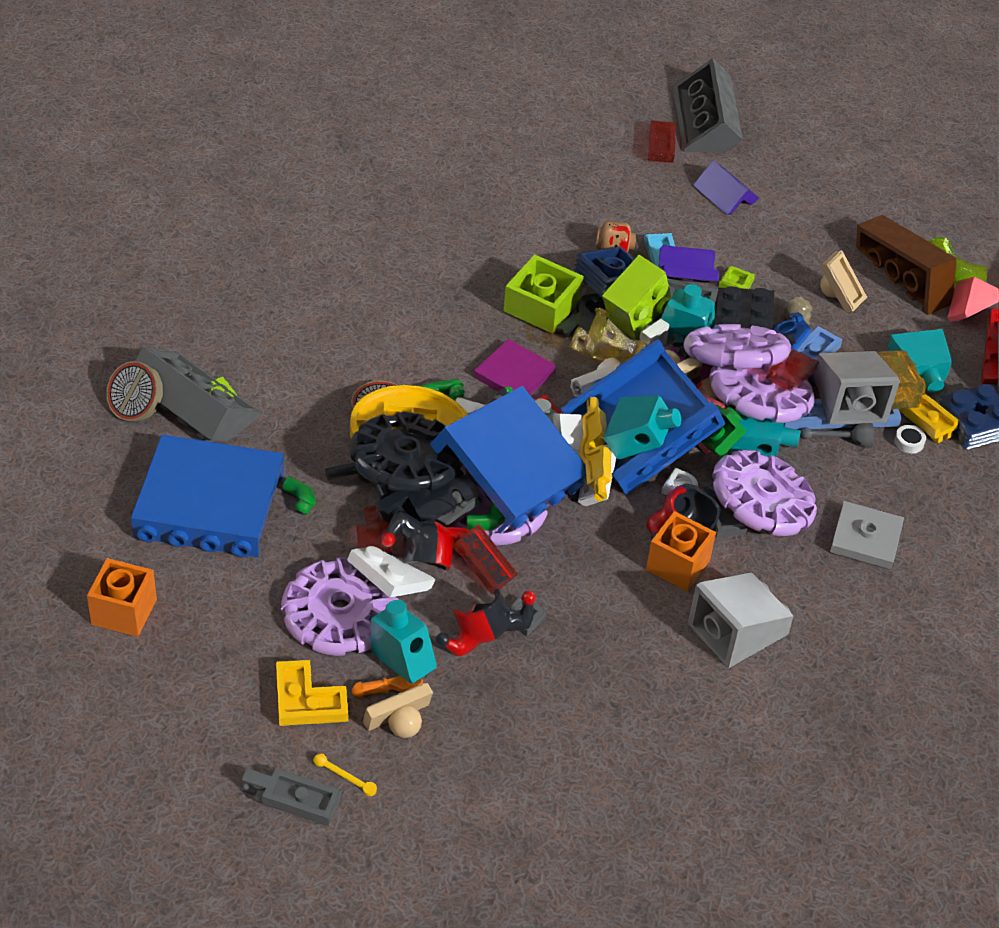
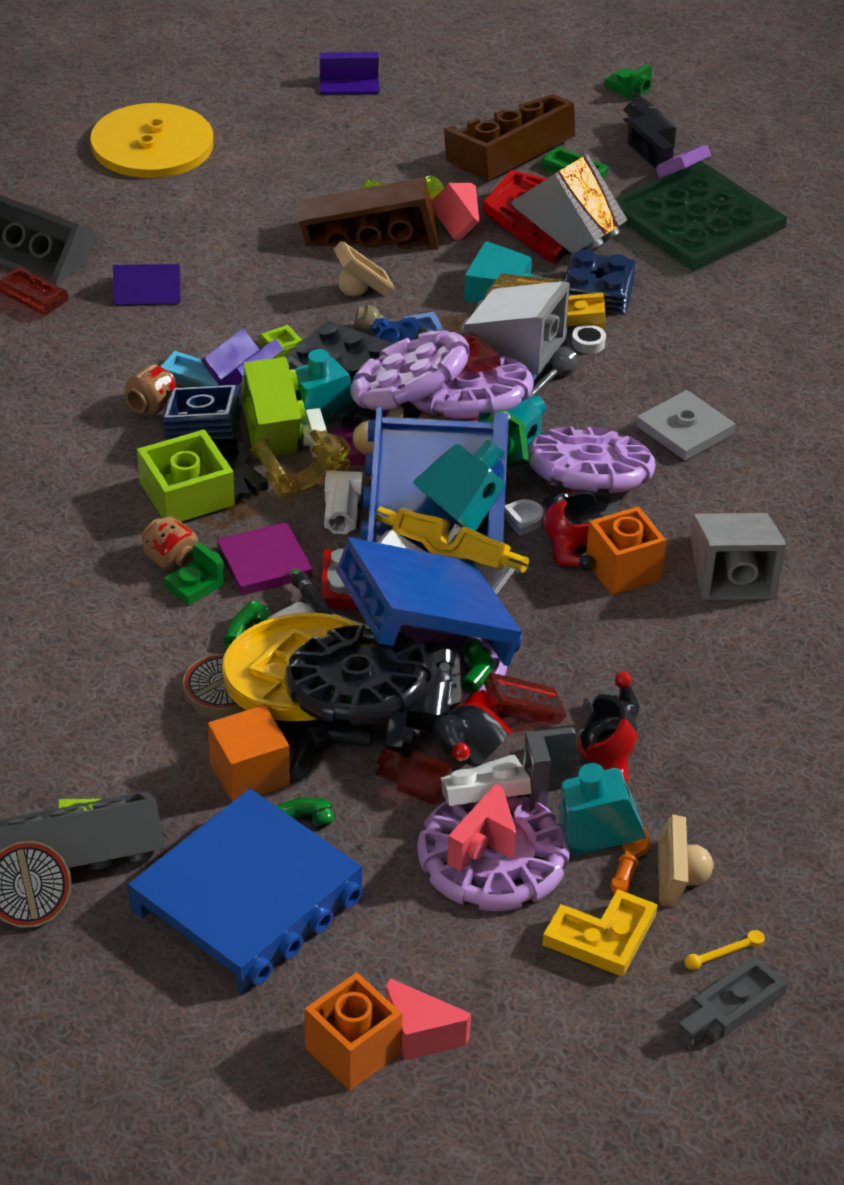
camera: 55 degrees left, 5 degrees down
(155, 630) = (427, 1022): none -> coral slope
(317, 440) = (249, 753): none -> orange head
(339, 582) = (485, 826): none -> coral slope
(419, 591) = (548, 761): none -> dark grey panel
(465, 347) = (198, 577): none -> green bracket
(478, 317) = (169, 543): none -> medium nougat head
(881, 120) = (152, 140): none -> yellow plate

